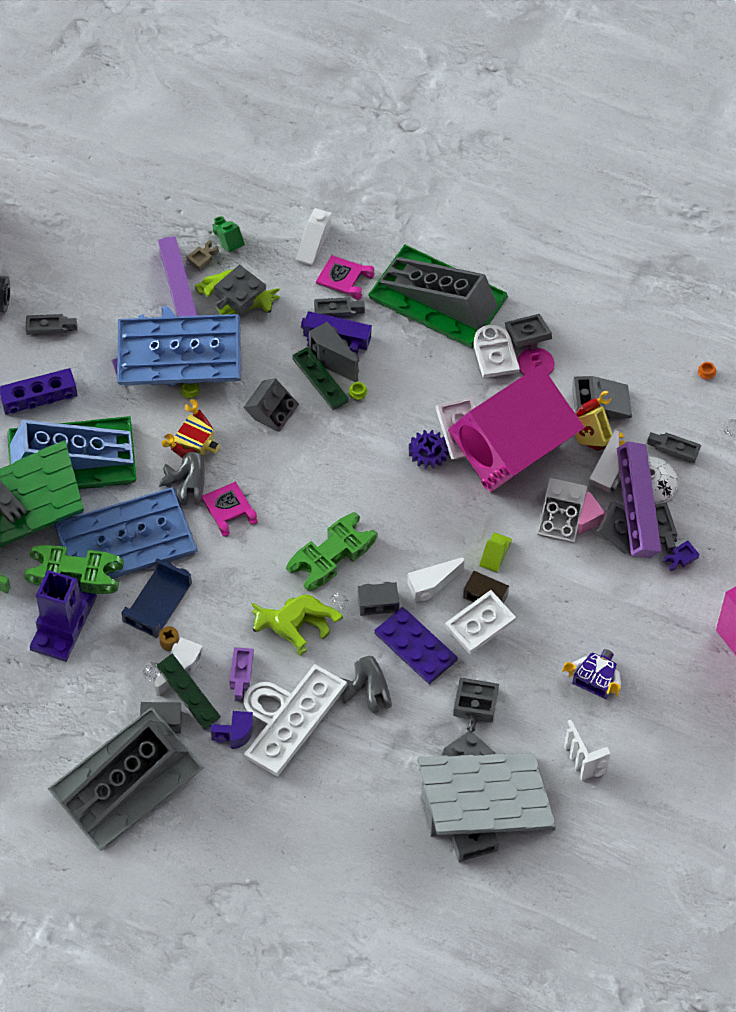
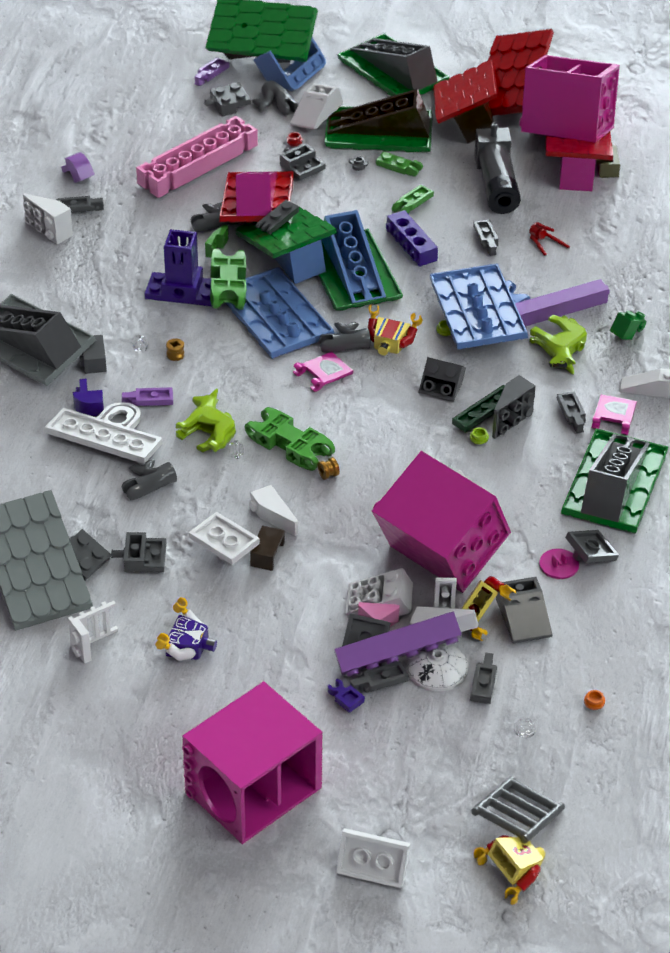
camera: 80 degrees right, 15 degrees down
(56, 277) = (539, 231): none -> red plant
(158, 598) = (214, 340): dark blue panel -> none
(188, 691) = (119, 362): dark green plate -> none
(189, 656) = (148, 358): white slope -> none
(201, 257) = (599, 314): dark tan plate -> none
(238, 290) = (556, 330): dark grey plate -> none
(355, 333) = (543, 414): dark purple brick -> none
(378, 598) = (243, 474): dark grey brick -> none
(383, 523) = (328, 468): none -> pearl gold wheel
(416, 645) = (198, 506): dark purple plate -> none
(495, 552) = (315, 553): lime slope -> none
(496, 353) = (552, 525): white plate -> none
(585, 454) = (444, 593): none -> white slope

